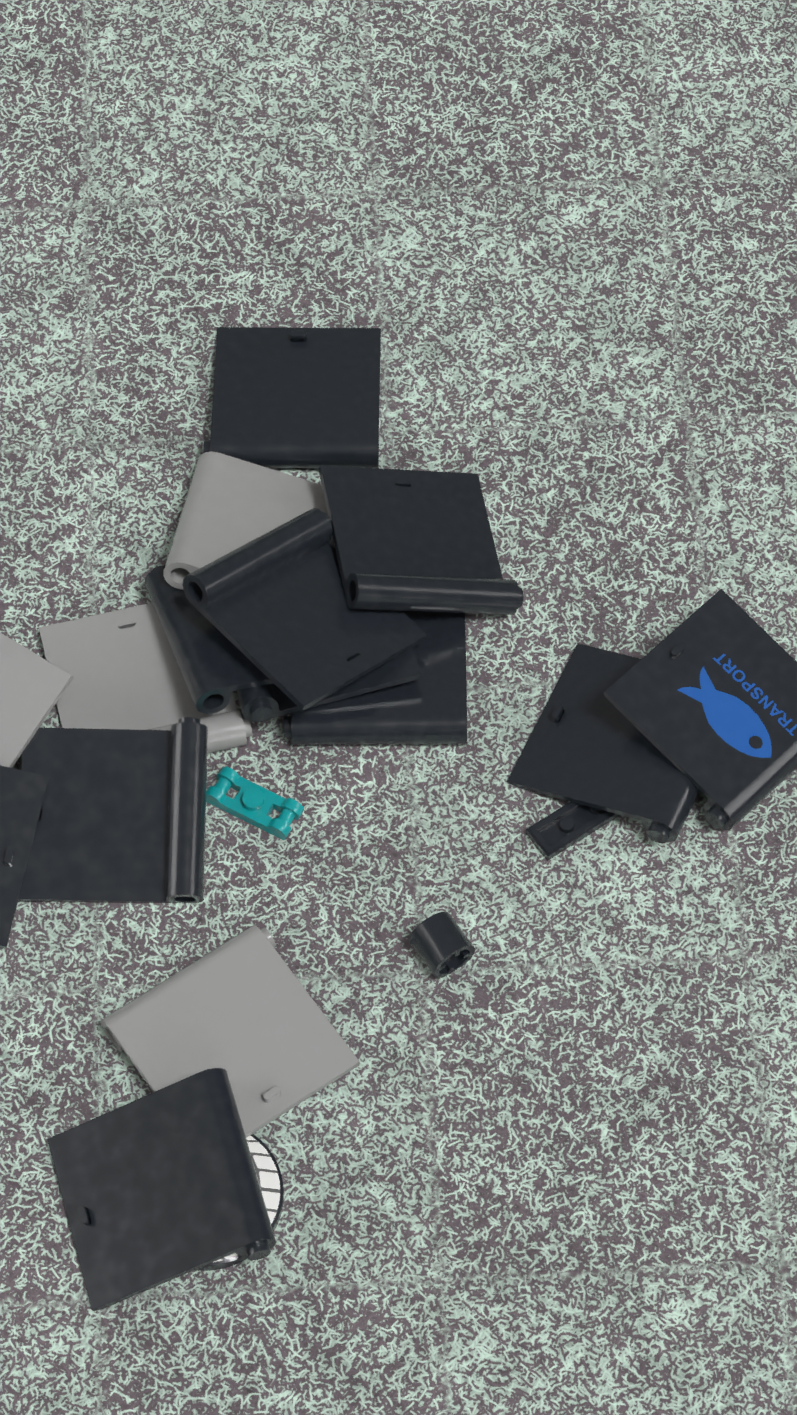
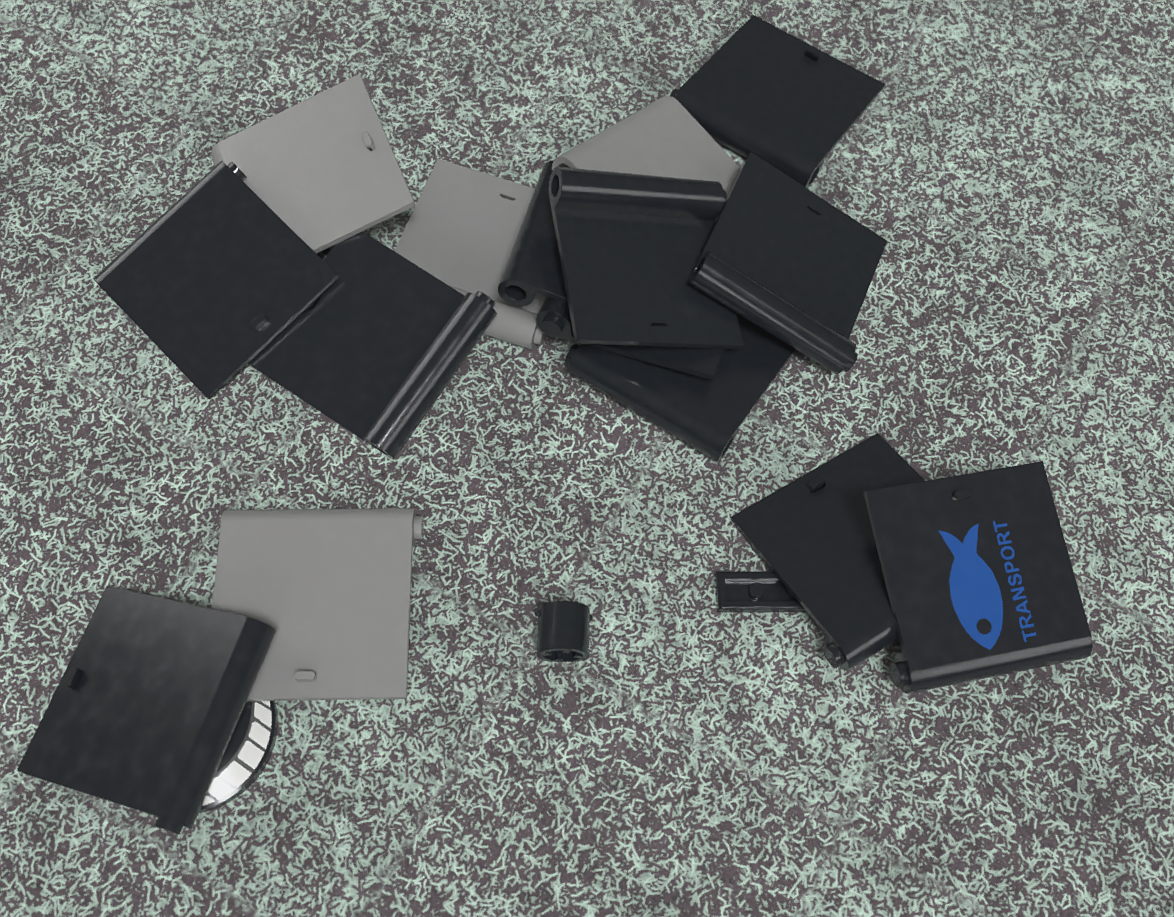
camera: 30 degrees right, 5 degrees up
(253, 803) = (499, 403): teal plate -> none

